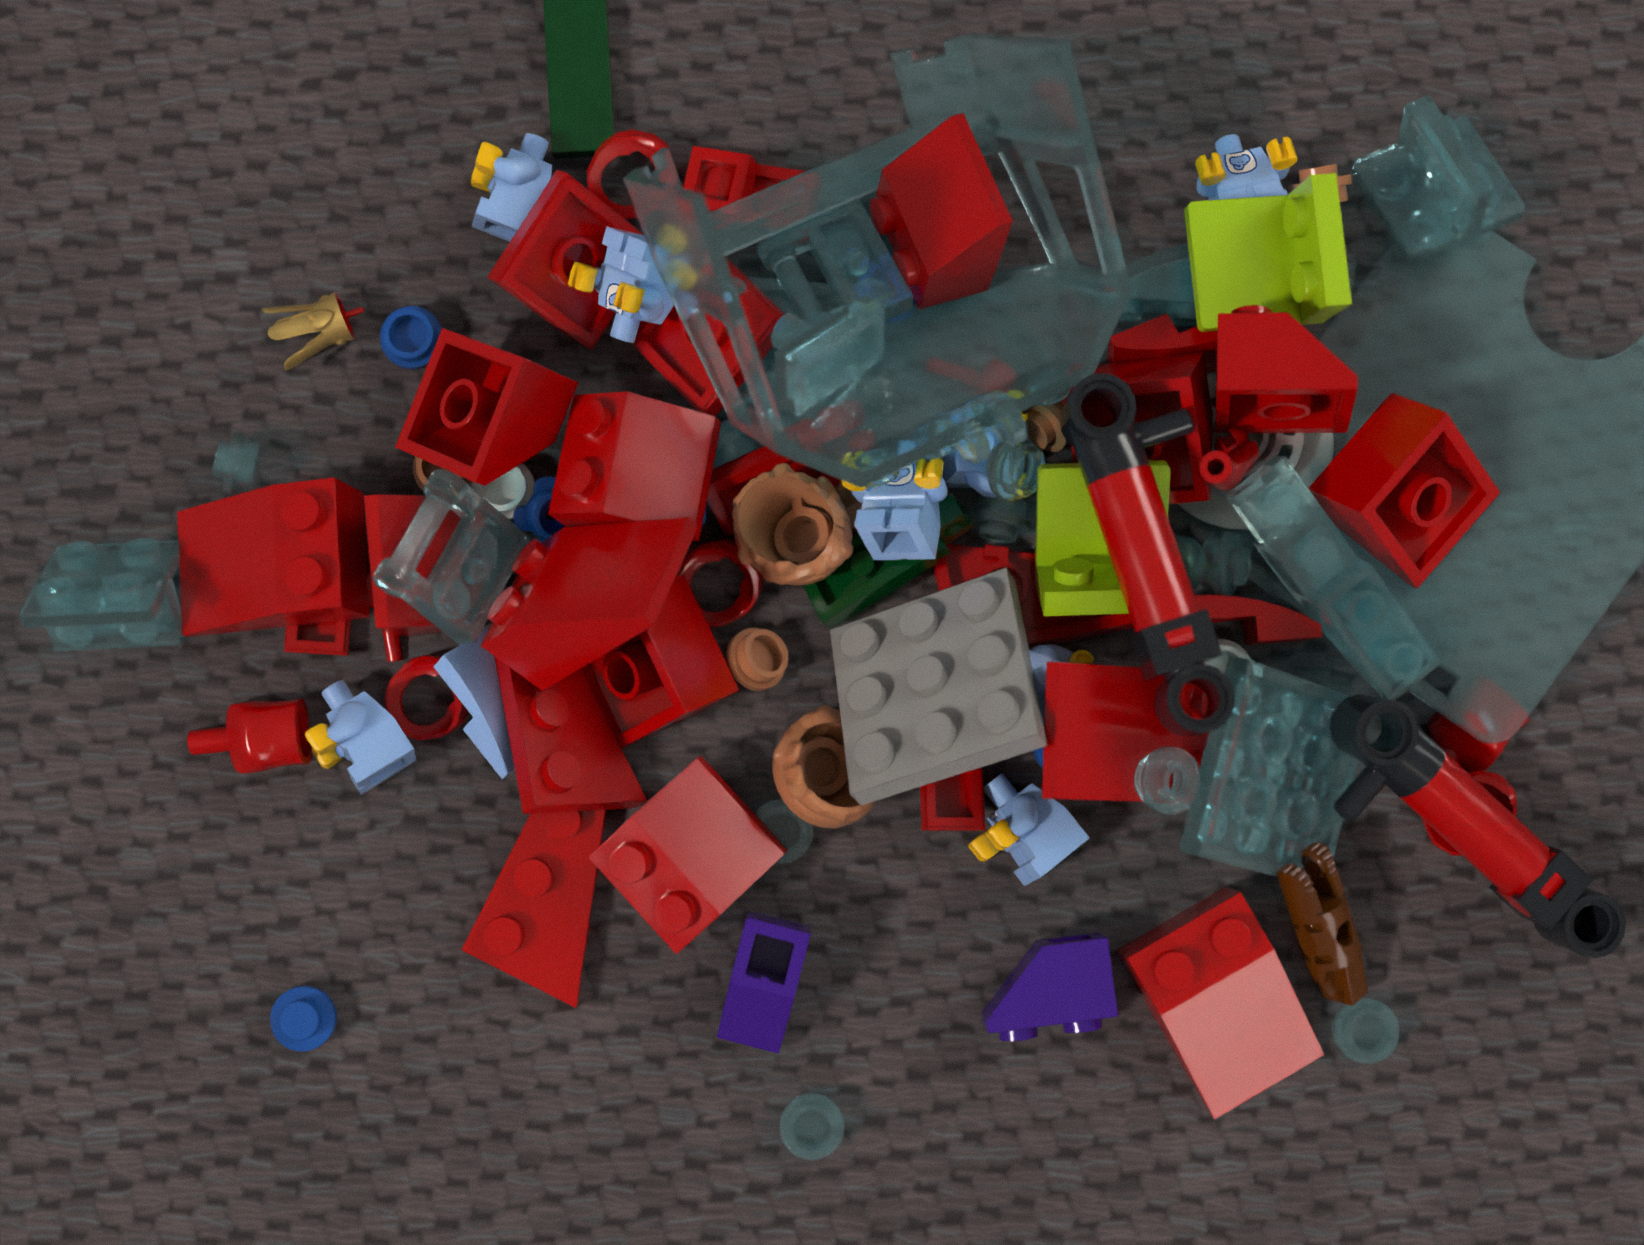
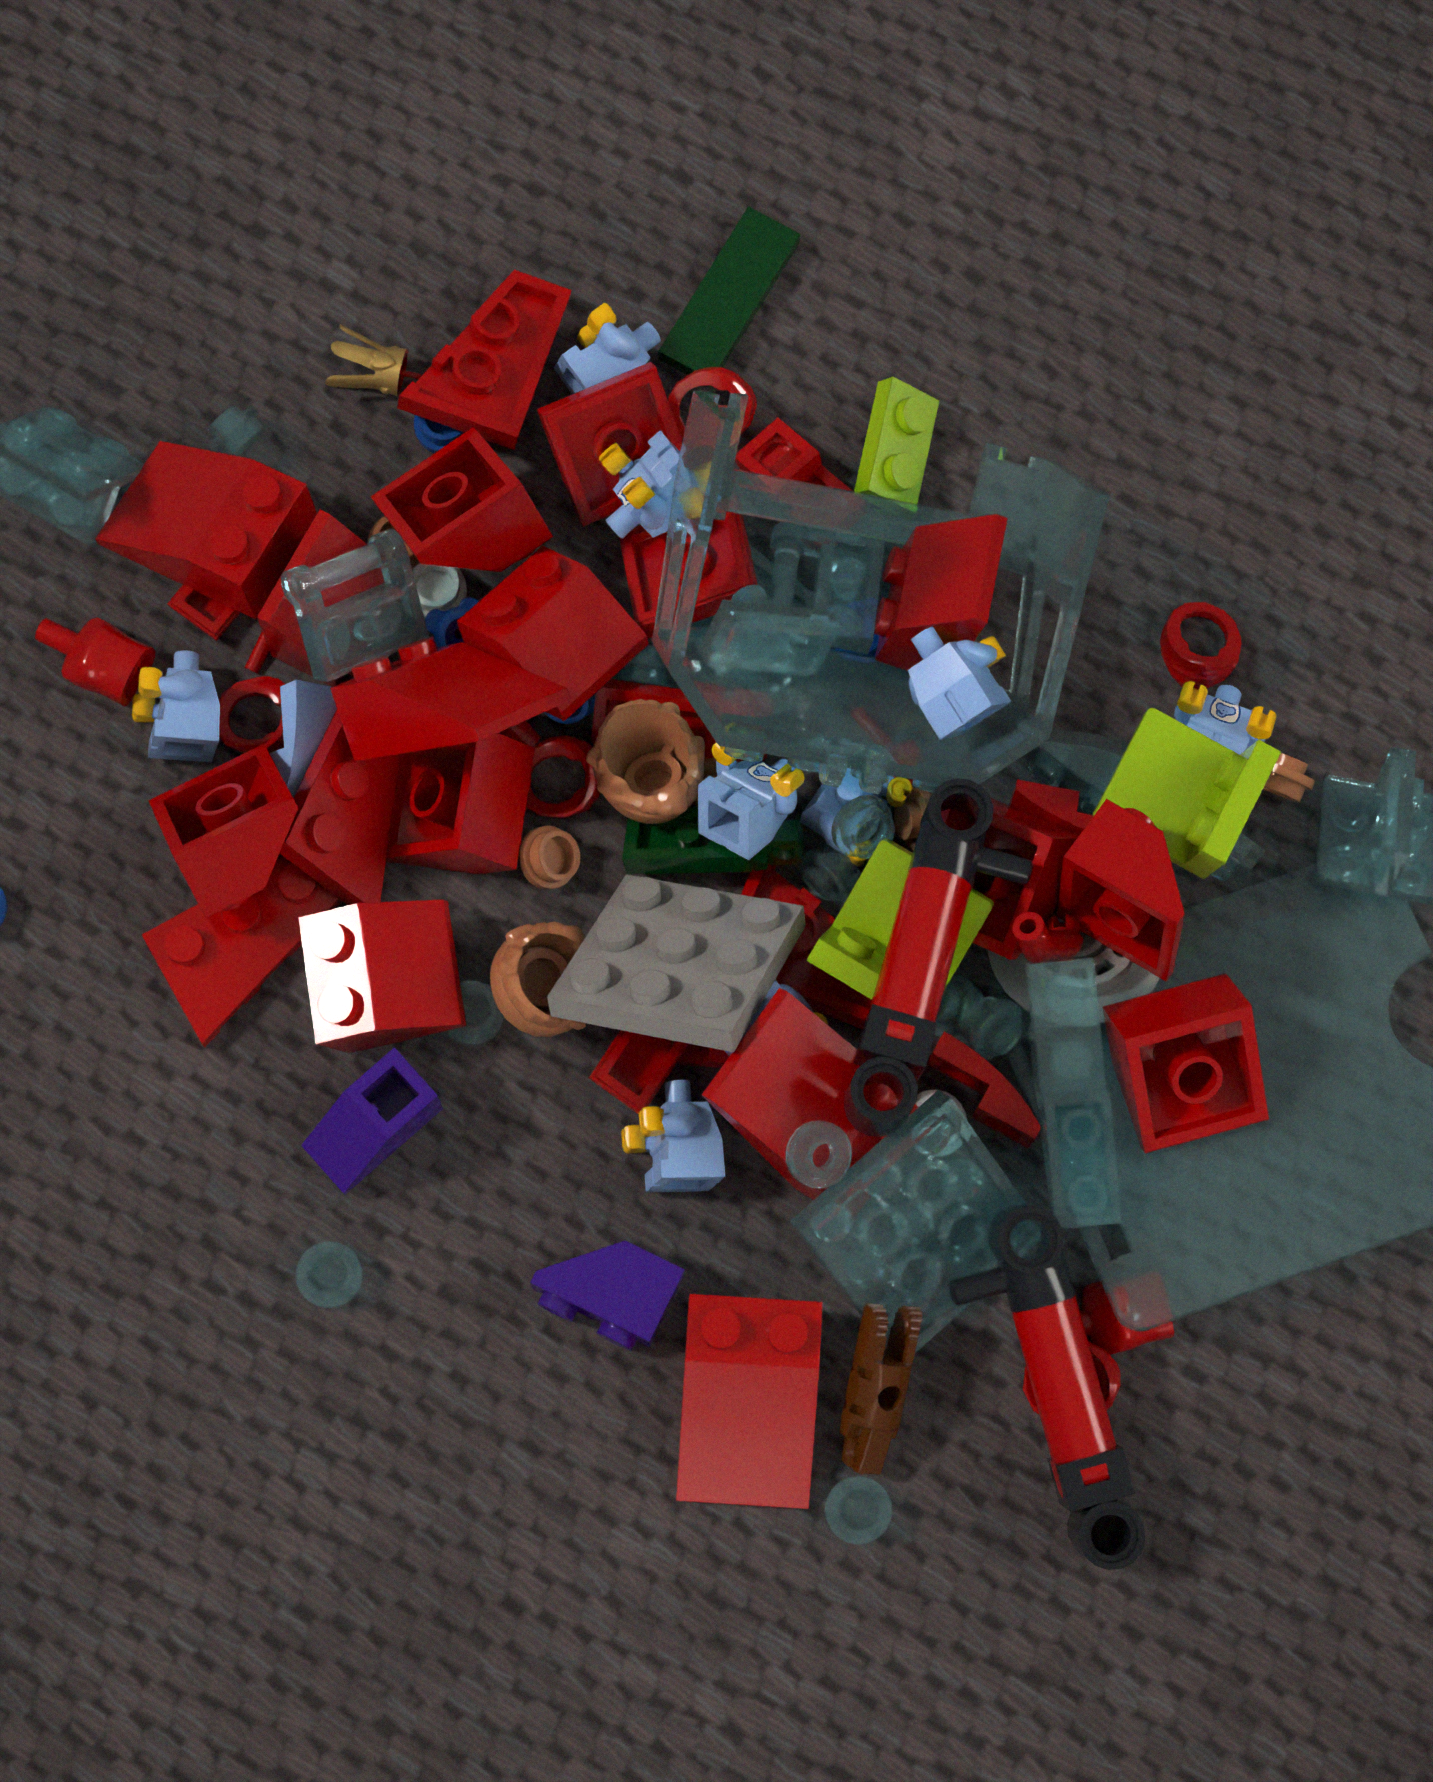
camera: 30 degrees right, 10 degrees down
(419, 257) = (494, 363): none -> red wing
(473, 822) = (227, 828): none -> red slope
(809, 102) = (897, 442): none -> lime plate
(1014, 290) = (955, 682): none -> light blue piece
(1184, 142) = (1189, 666): none -> red piece

